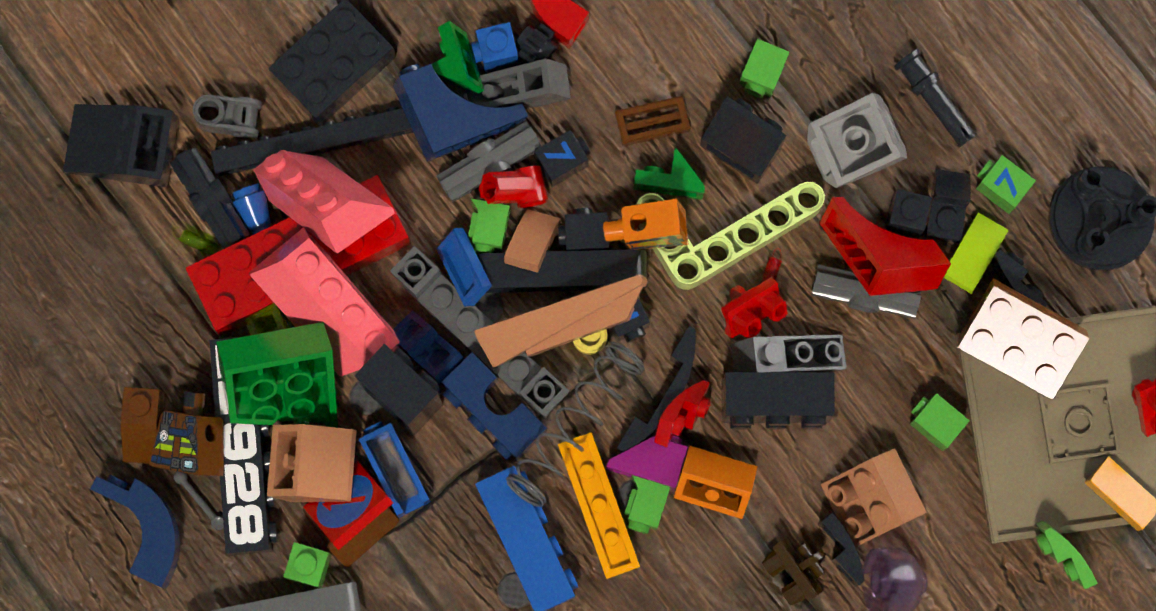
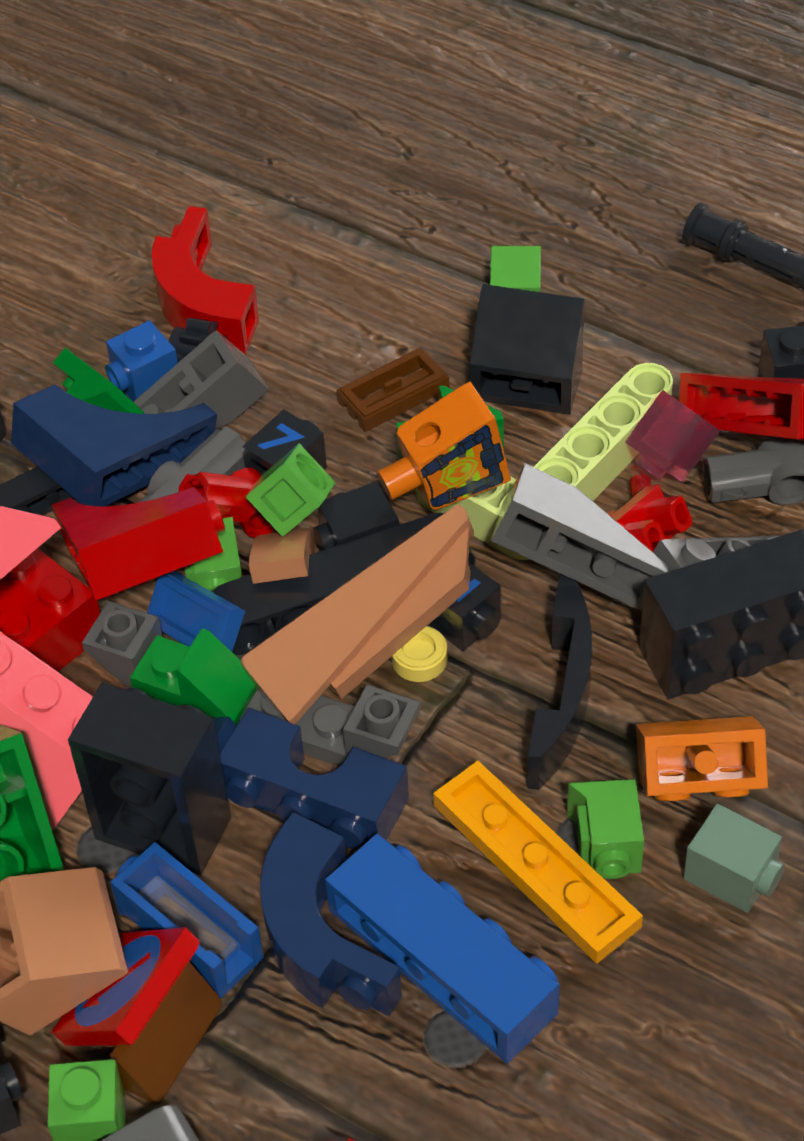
camera: 15 degrees left, 30 degrees down
(438, 216) = (138, 540): none -> red arch
(447, 316) = (195, 676): none -> green slope
(453, 484) = (300, 940): none -> dark blue arch
(533, 489) = (423, 816): dark grey piece -> none
(550, 205) = (290, 490): none -> bright green brick
(651, 461) = (586, 753): magenta slope -> none
(683, 412) = (606, 678): red slope -> none
(701, 308) = (574, 537): none -> dark grey slope
(706, 551) = (734, 859): none -> sand green brick
(804, 243) = (671, 438): none -> clear pink brick
(855, 141) = (677, 313): light grey slope -> none

